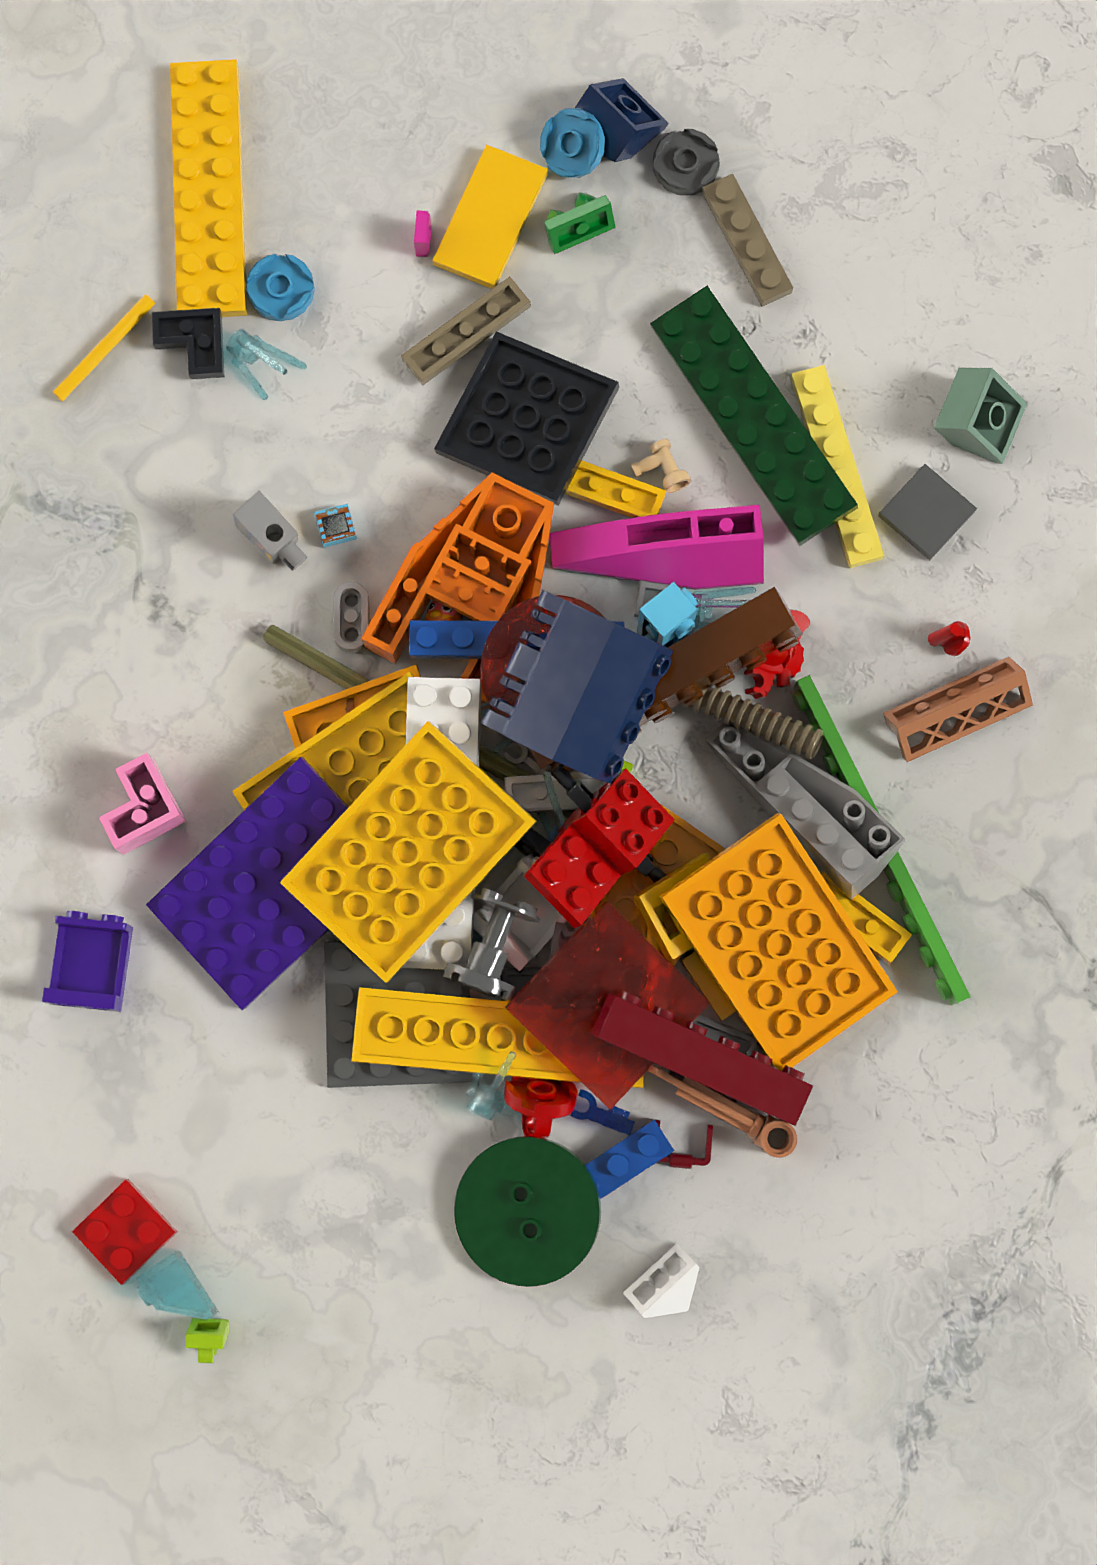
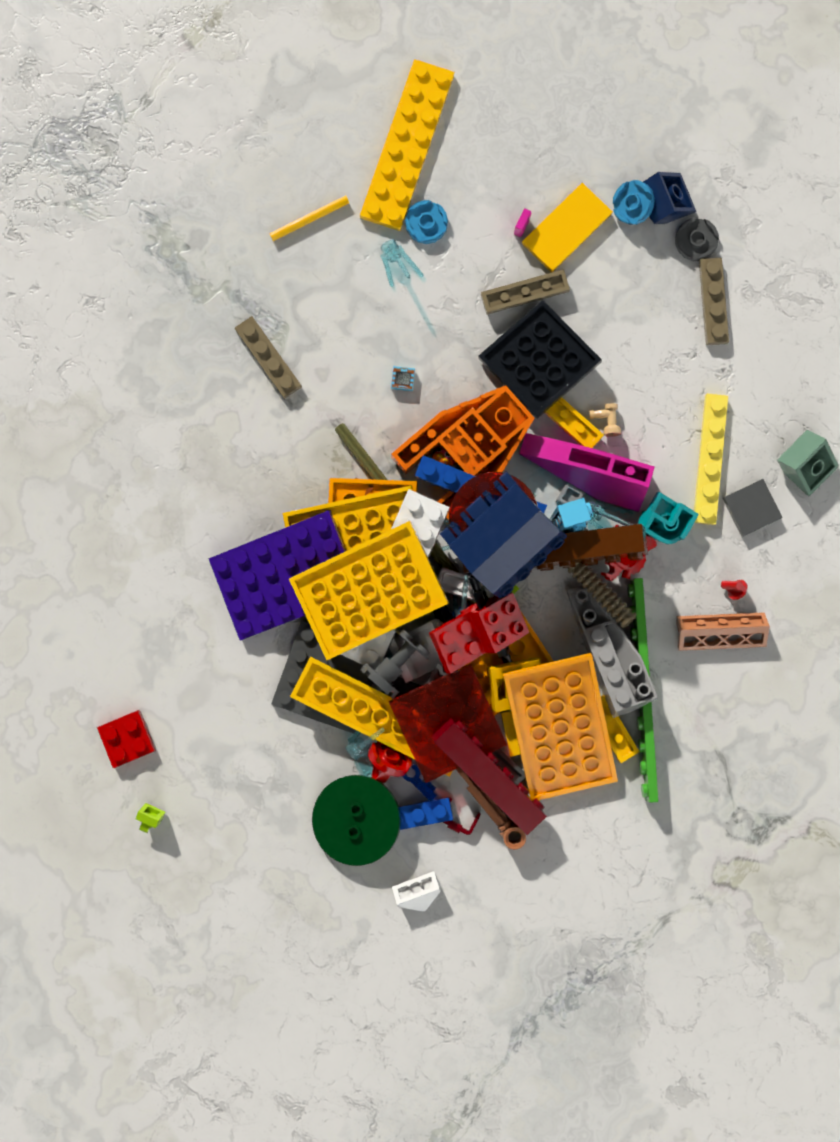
camera: 20 degrees right, 5 degrees up
(89, 962) = (164, 578): dark purple panel -> none
(121, 572) = (268, 357): none -> dark tan plate
(149, 811) = (232, 504): bright pink brick -> none
(175, 1288) = (142, 783): clear light blue slope -> none
(199, 332) = (367, 229): black plate -> none
(259, 520) = (359, 359): light grey torso -> none
(350, 618) = (390, 437): light grey plate -> none
(587, 220) = (624, 252): green tile -> none
(754, 416) = (673, 410): dark green plate -> none
(811, 575) = (667, 519): none -> teal brick

